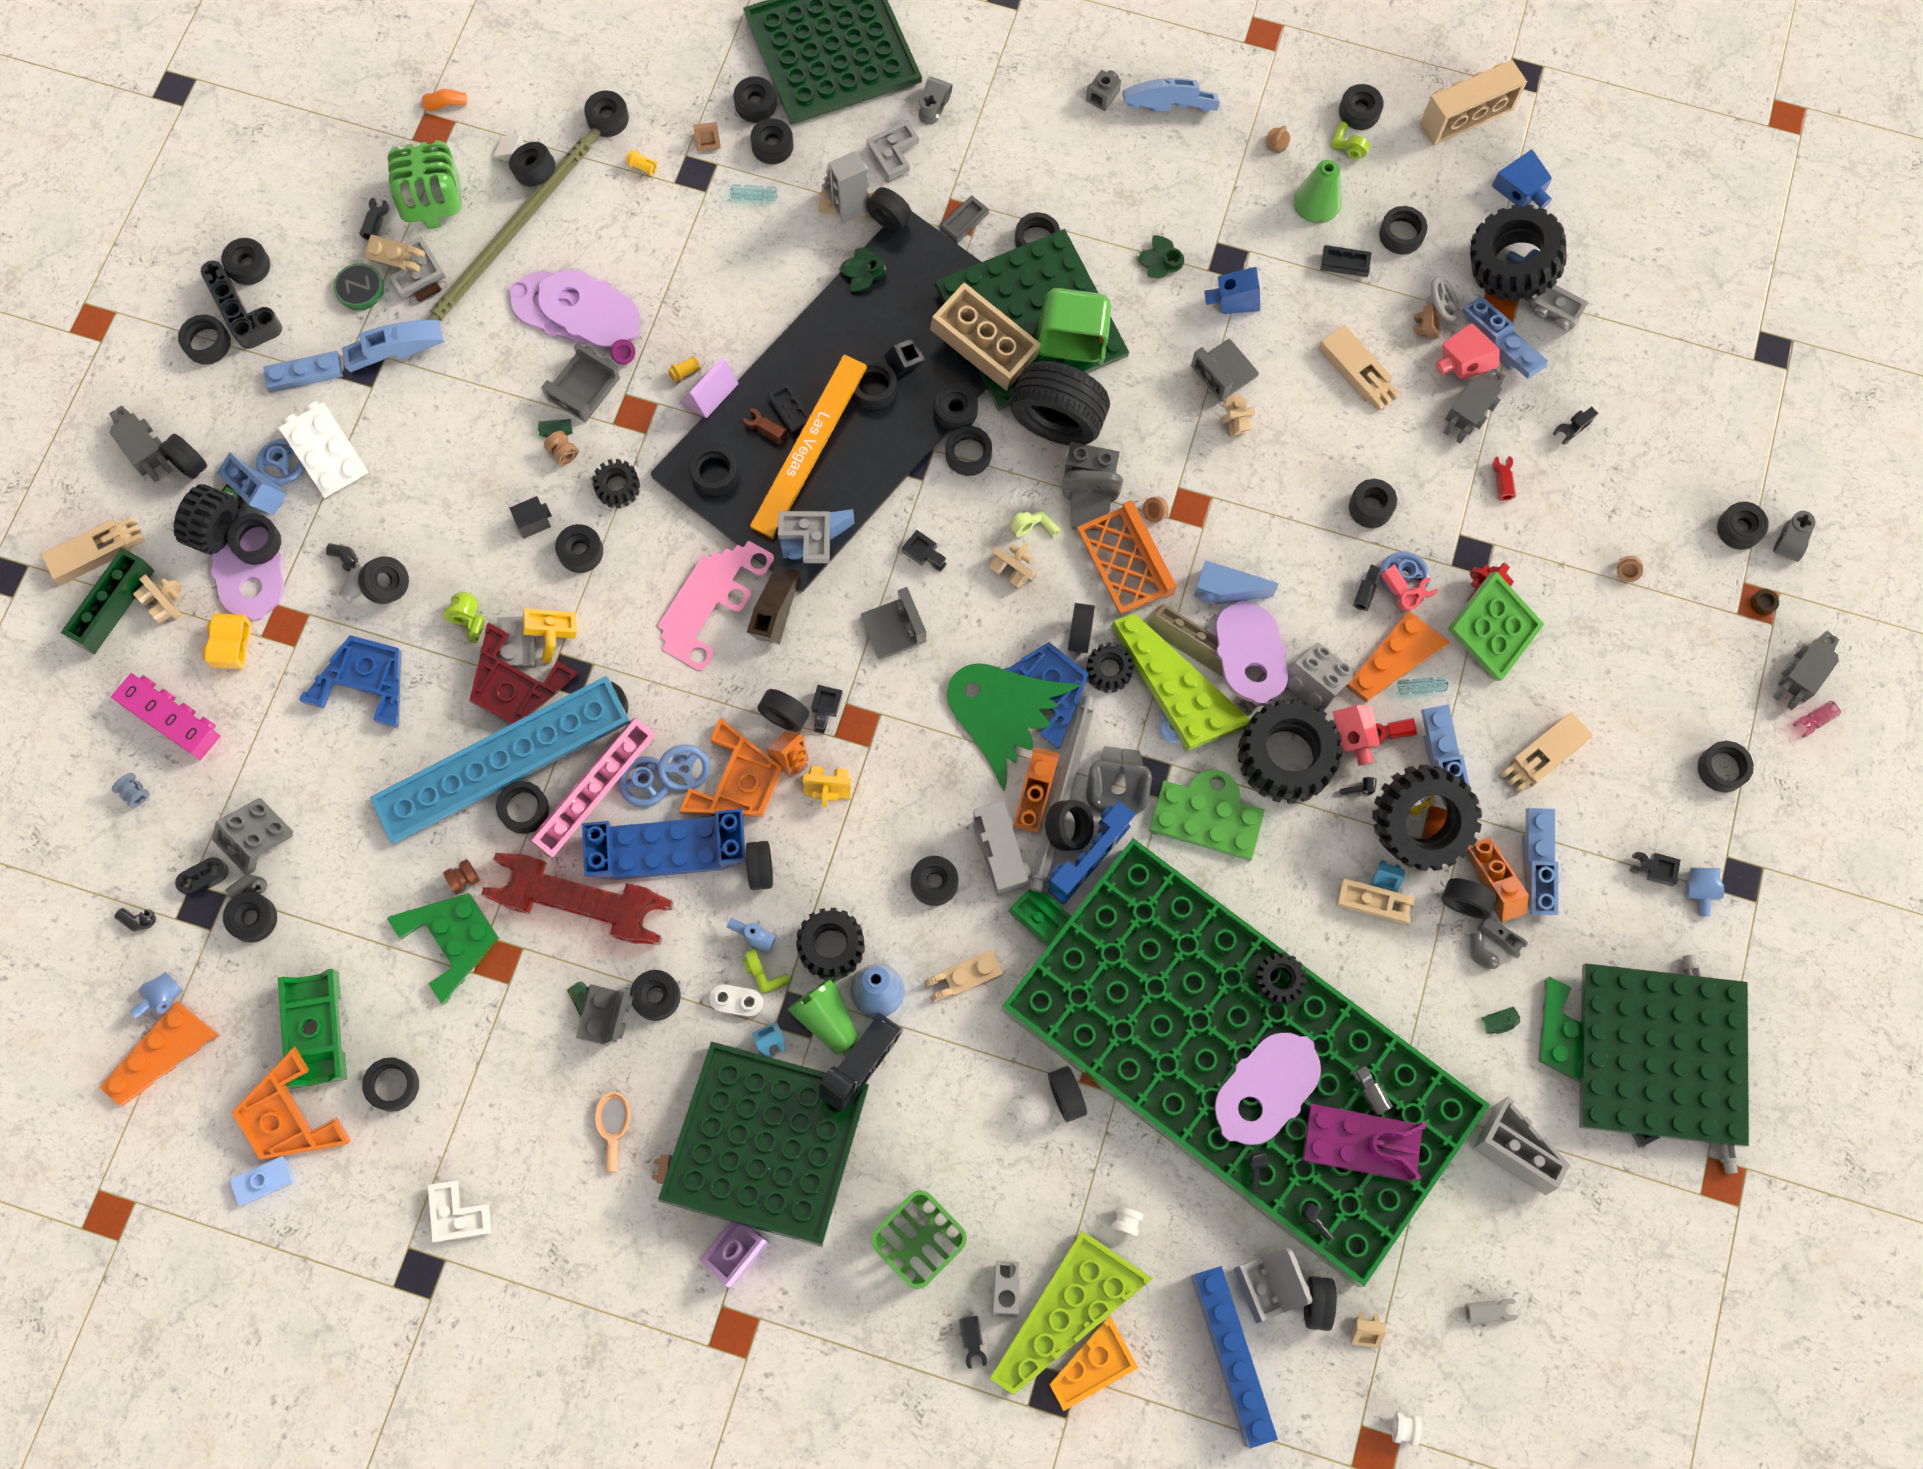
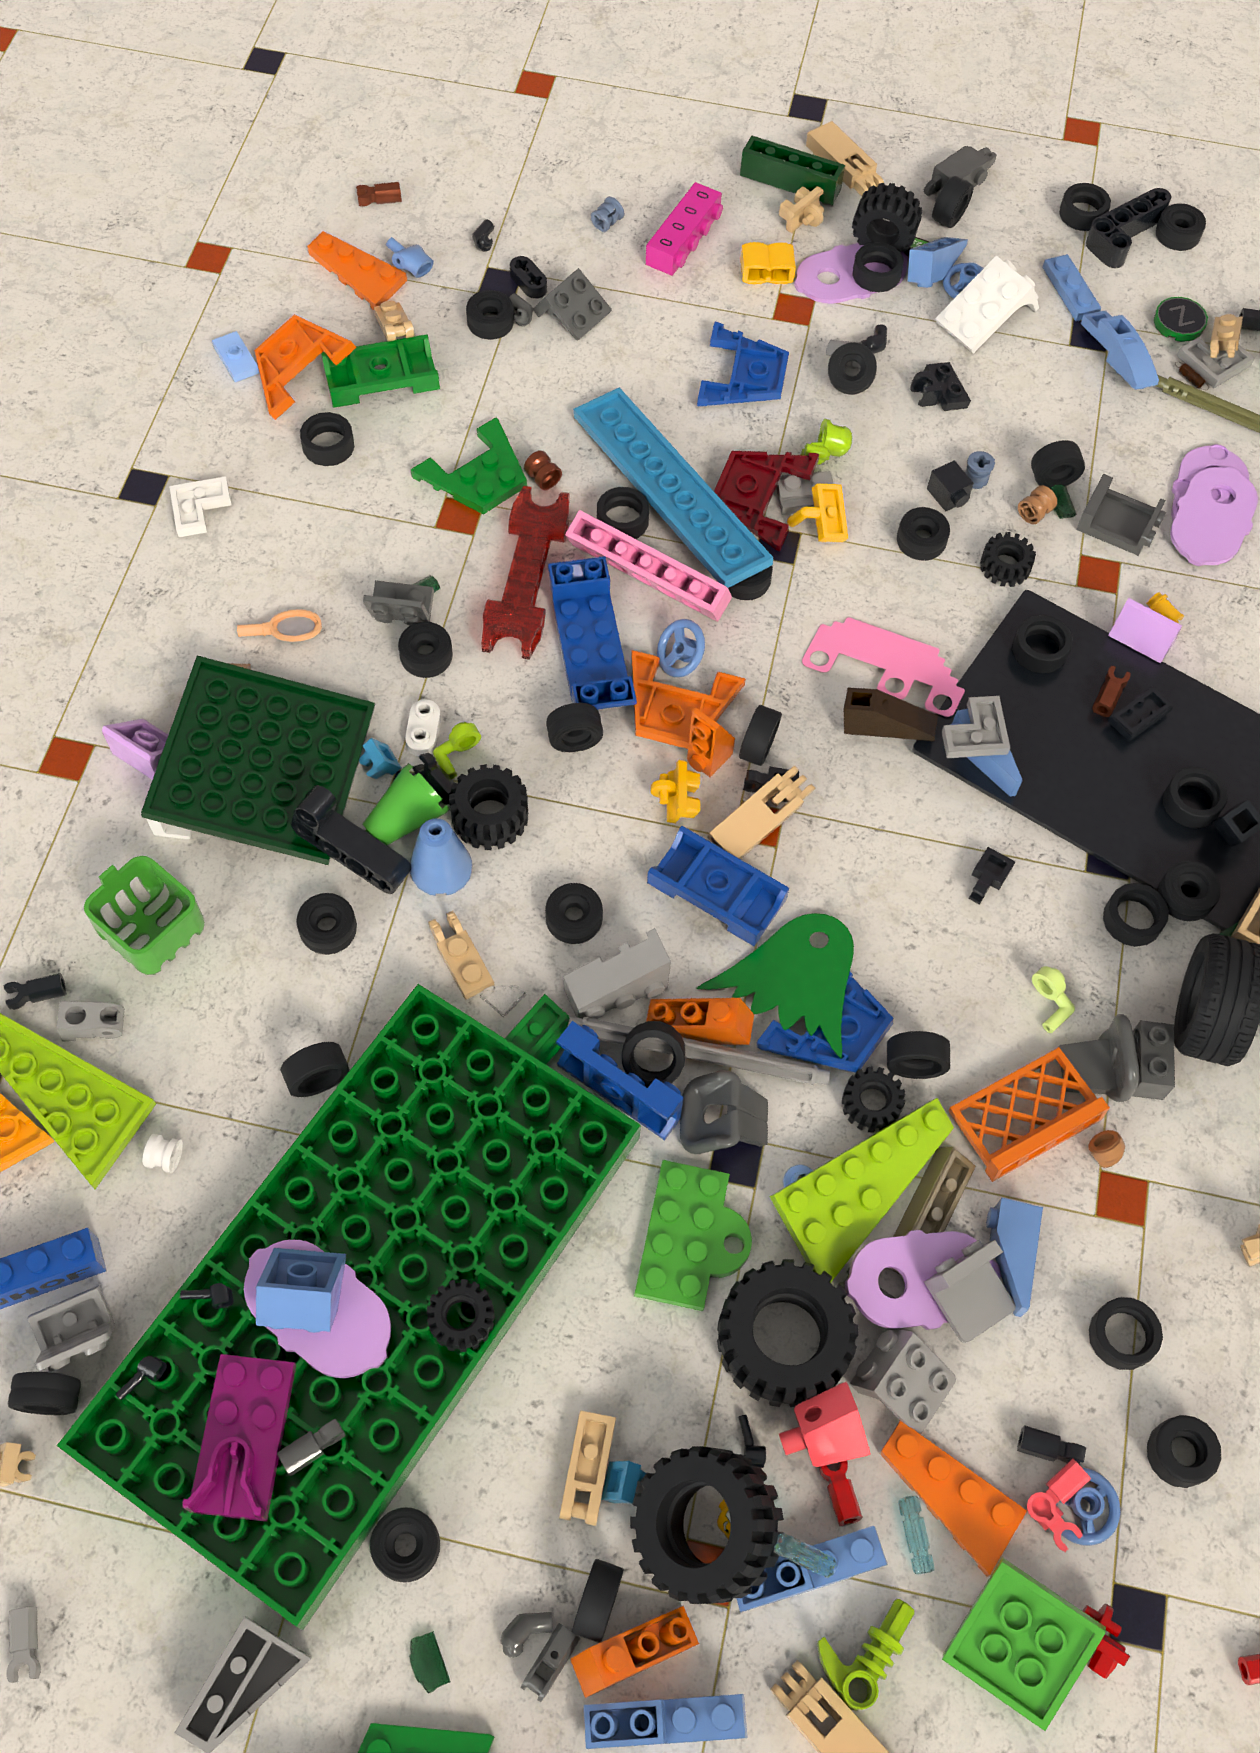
camera: 85 degrees right, 10 degrees down
(52, 1026) = (380, 193): none -> copper bar
(249, 1012) = (393, 320): none -> tan plate
(410, 506) = (940, 384): none -> black plate
(515, 488) = (979, 468): none -> sand blue bush
(524, 422) = (1058, 464): none -> black tyre
(622, 351) = (1169, 549): magenta tile -> none
(637, 774) = (664, 613): medium blue piece -> none
(760, 939) = (494, 733): medium blue piece -> none
(793, 989) = (435, 776): none -> black bar
(809, 445) = (1107, 735): light orange tile -> none
(863, 726) = (755, 820): none -> tan hinge
(894, 625) = (887, 848): dark grey bracket -> none
(919, 762) = (719, 885): none -> blue piece
(928, 1071) = (324, 906): none -> black tyre
(1002, 560) = (997, 977): tan hips -> none
(1259, 1096) = (300, 1290): none -> medium blue slope
(1262, 620) = (971, 1291): none -> light grey bracket
(1300, 508) = (1142, 1314): none -> black tyre
(1440, 1025) = (383, 1540): none -> black tyre
(1448, 753) = (805, 1555): none -> clear light blue axle
(1506, 726) = (870, 1665): none -> lime piece

